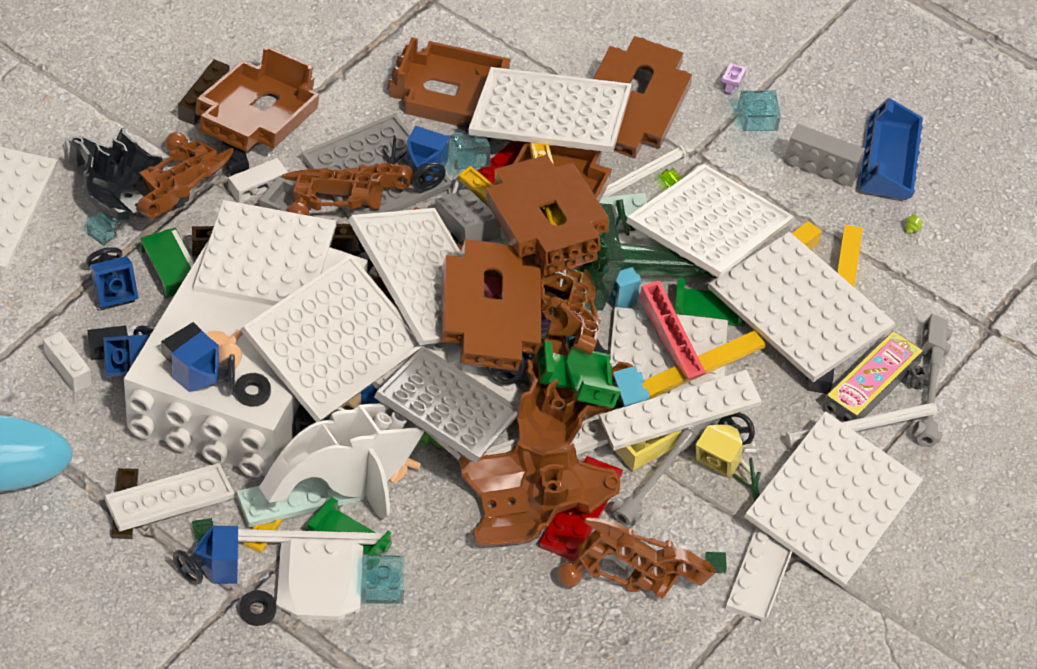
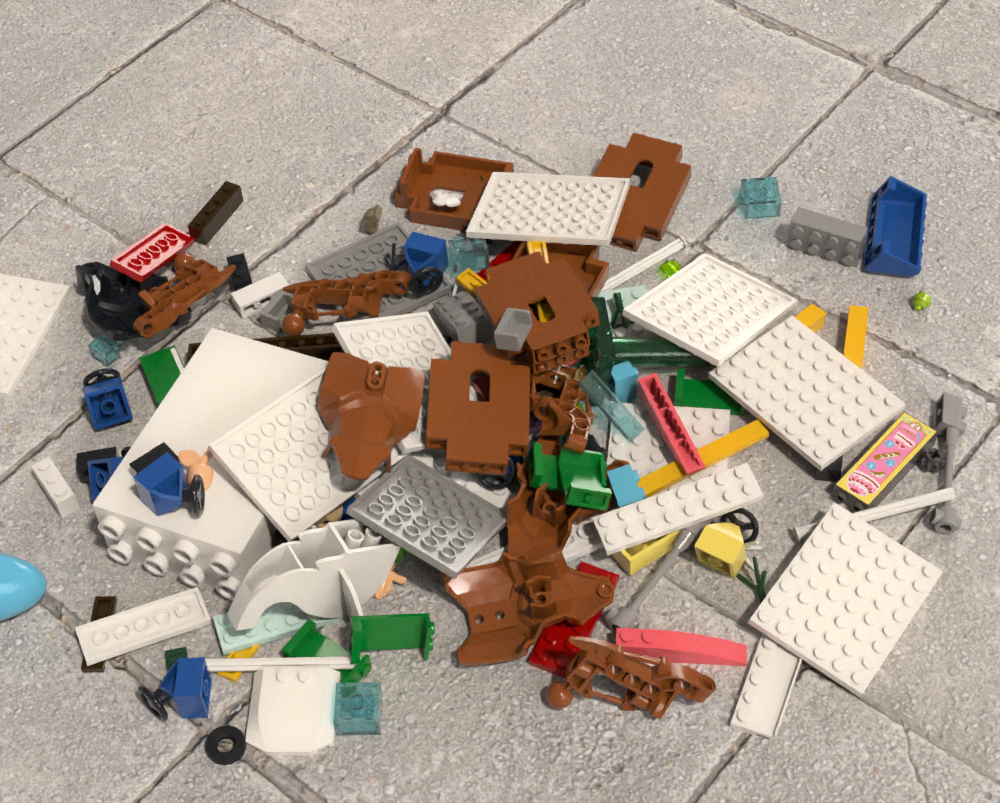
camera: 10 degrees right, 0 degrees up
(146, 130) = (152, 252): none -> plate
(228, 109) = (235, 225): dark orange panel -> none
(252, 400) = (221, 521): black tyre -> none
(263, 253) = (244, 366): white plate -> none
(367, 108) = (371, 219): none -> dark tan bracket
(389, 302) = (367, 411): none -> dark orange piece
(411, 511) = (390, 632): none -> green panel
(438, 92) = (442, 198): none -> white plate
(527, 231) = (513, 329): none -> light grey panel
(615, 310) = (611, 406): none -> clear light blue tile
(684, 535) = (682, 647): none -> coral slope
(717, 560) = (719, 673): clear green tile -> none
(733, 77) = (734, 167): lavender plate -> none

